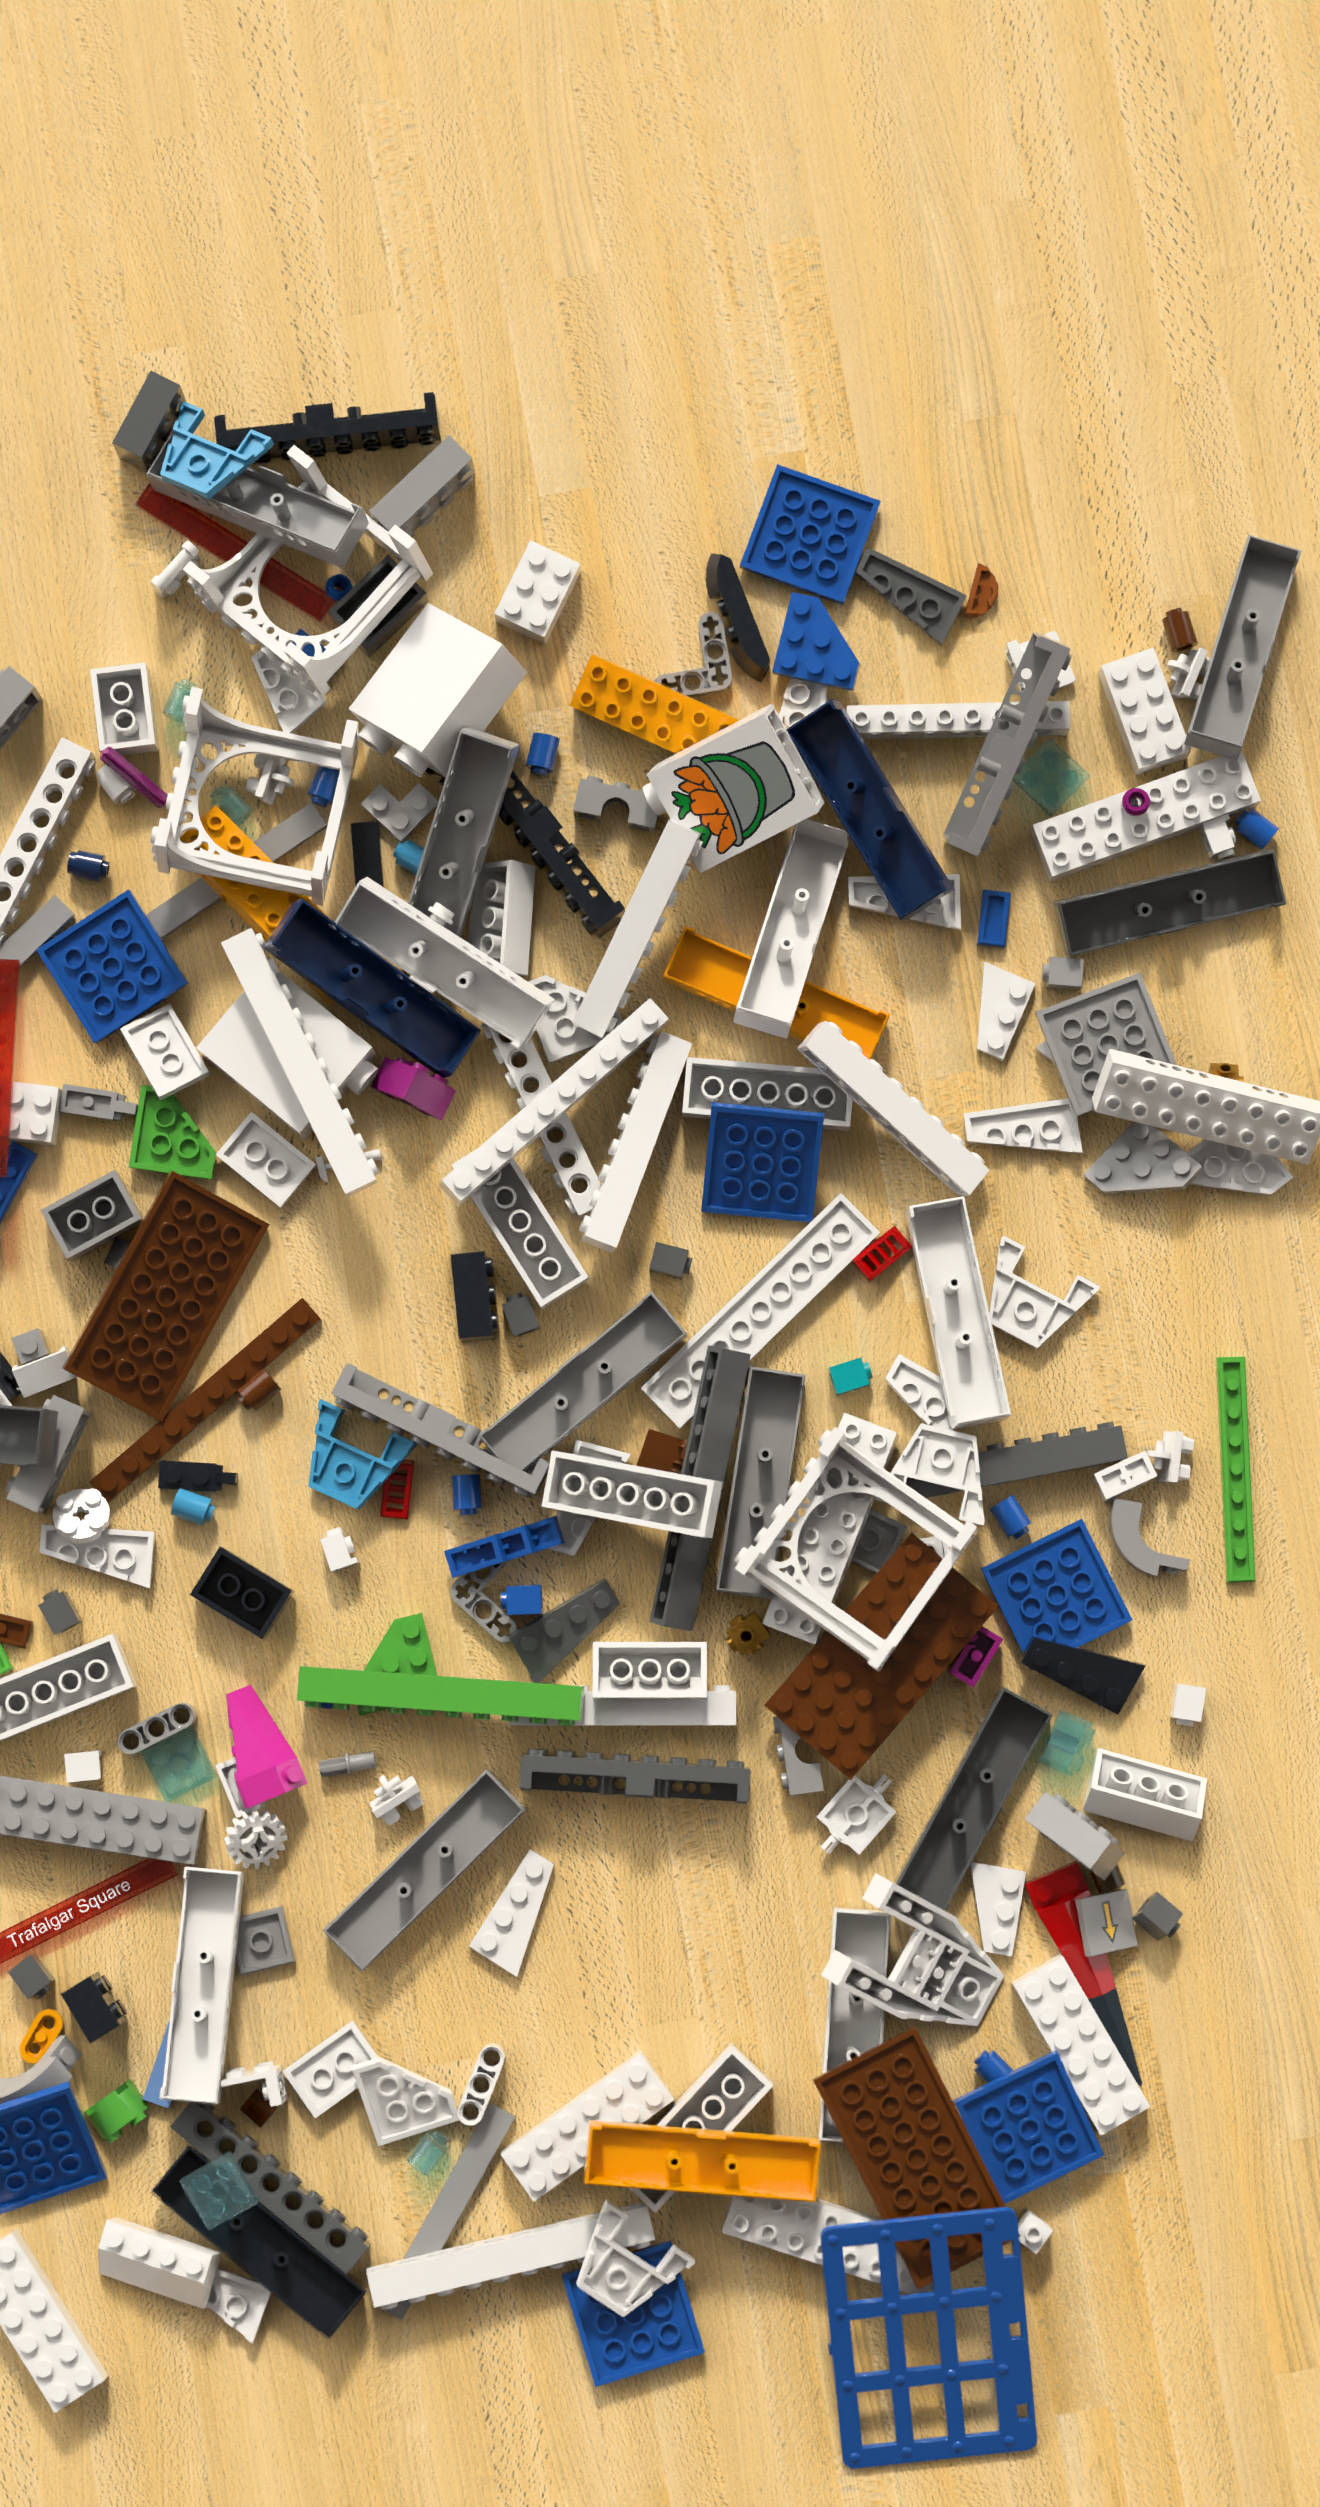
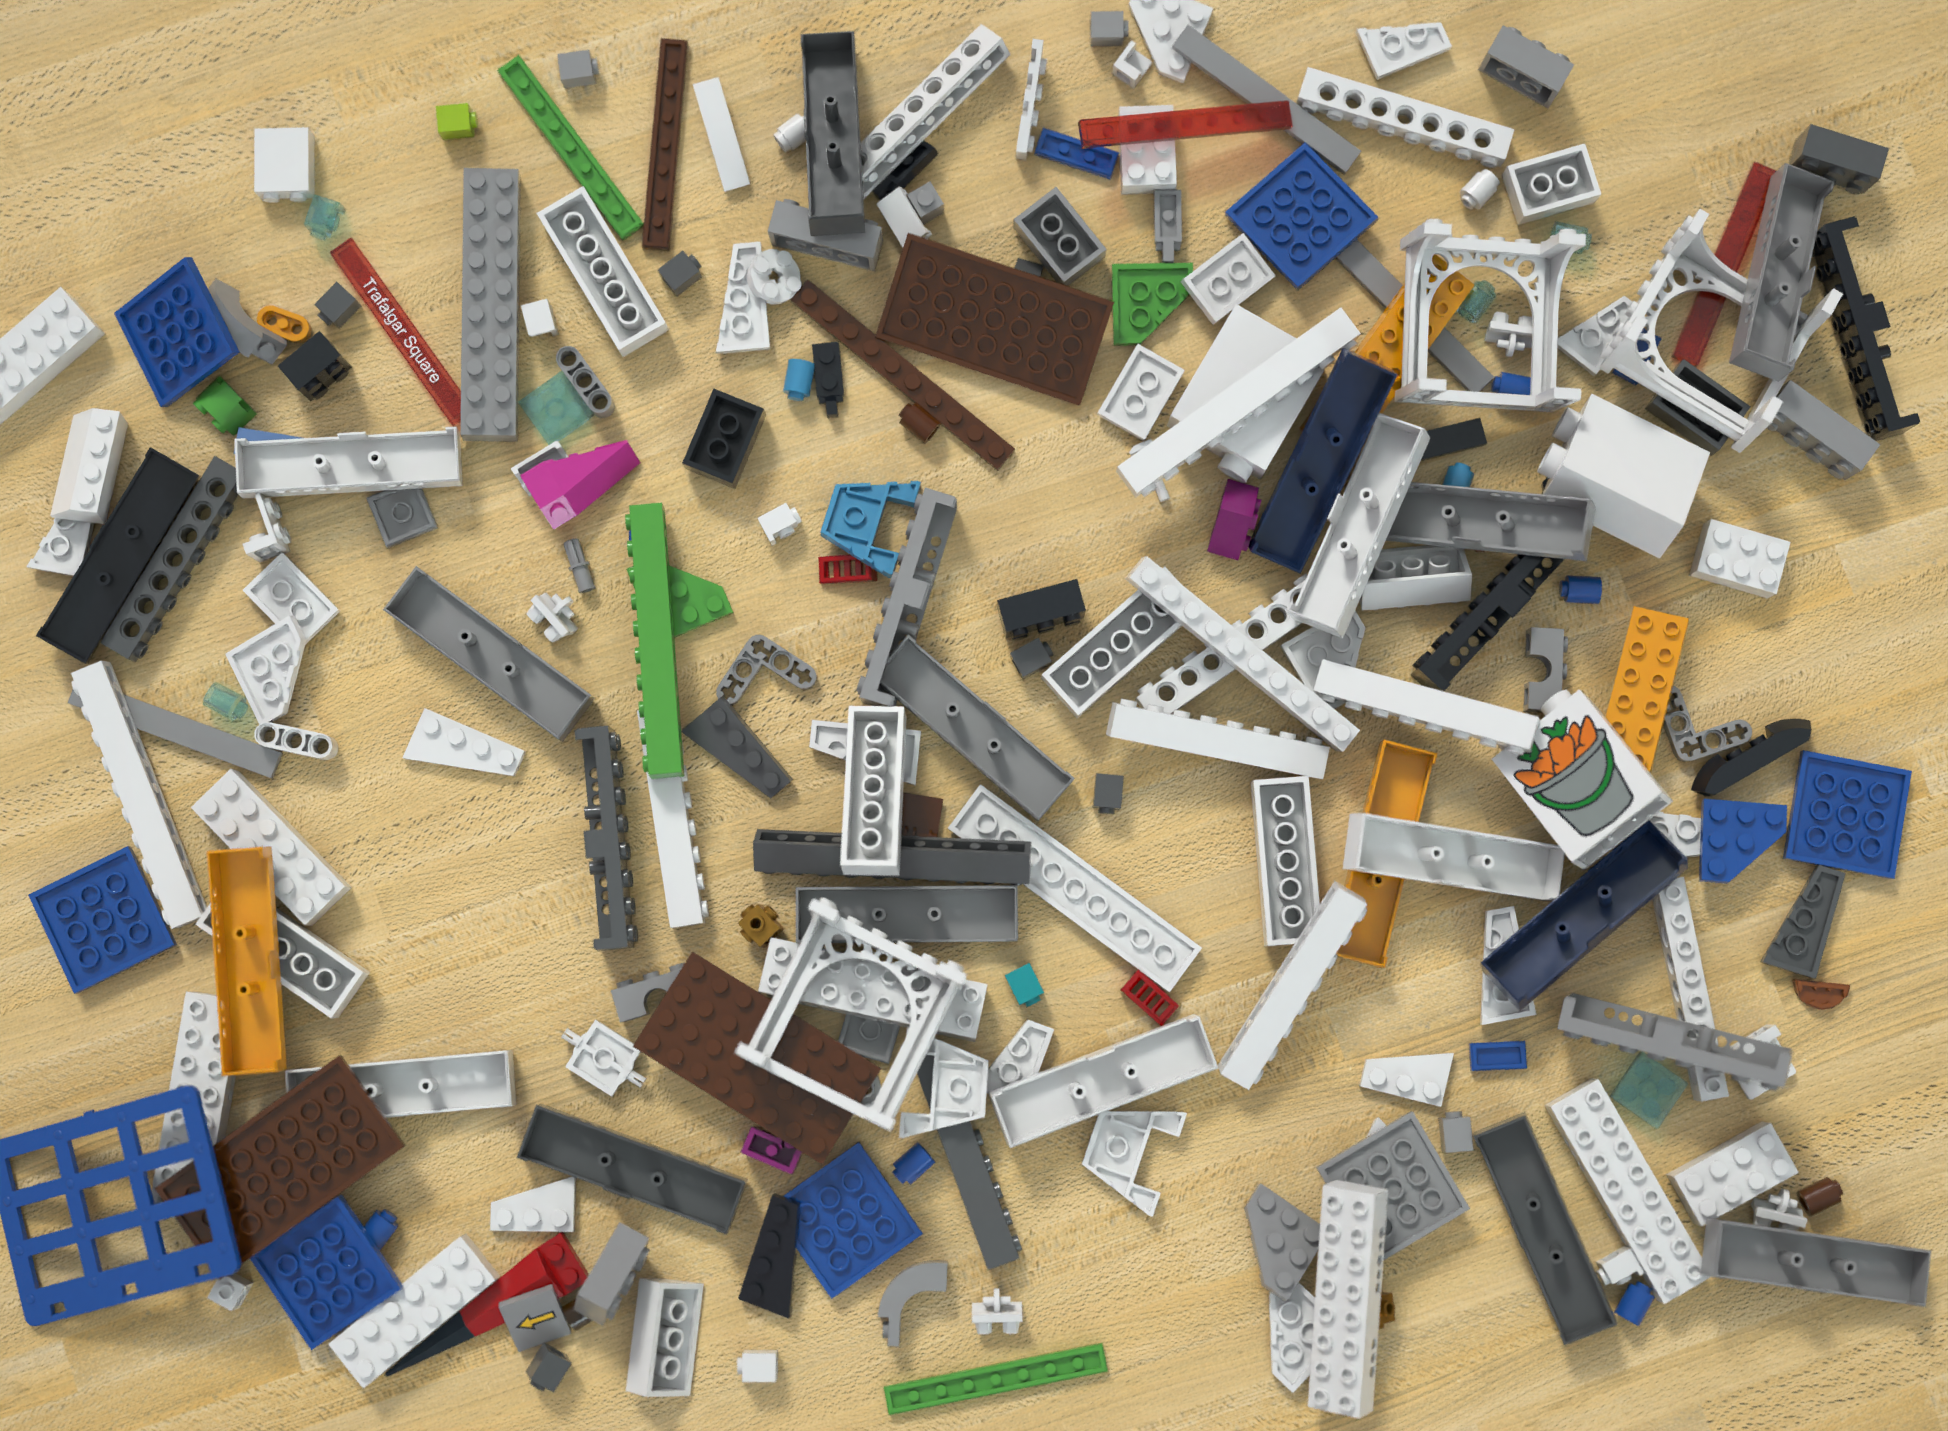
camera: 80 degrees right, 0 degrees up
(88, 865) = (1394, 177): dark blue brick -> none
(134, 777) = (1489, 201): magenta axle -> none
(169, 579) = (1684, 204): white plate -> none
(204, 465) = (1805, 214): dark azure wing -> none
(219, 2190) = (158, 509): clear light blue plate -> none
(257, 1841) = (486, 481): white gear -> none
(257, 2108) = (243, 533): reddish brown plate -> none
(340, 581) = (1713, 363): blue plate -> none
(403, 816) = (1494, 462): white plate -> none
(441, 914) = (1406, 515): white plate -> none
(466, 1493) = (852, 635): blue brick -> none
(504, 1546) = (806, 678): blue slope -> none
(522, 1600) = (758, 704): blue brick -> none
(618, 2275) = (132, 899): white wing -> none
(649, 1670) = (708, 836): white slope -> none
(762, 1162) = (1218, 865): blue plate -> none
(938, 1973) = (460, 1160): white wedge -> none
(1031, 1126) = (1299, 1125): white wing -> none
(1066, 1743) = (702, 1252): clear light blue brick -> none
(1125, 1476) = (970, 1270): white hinge -> none
(1139, 794) = (1648, 1178): magenta plate -> none

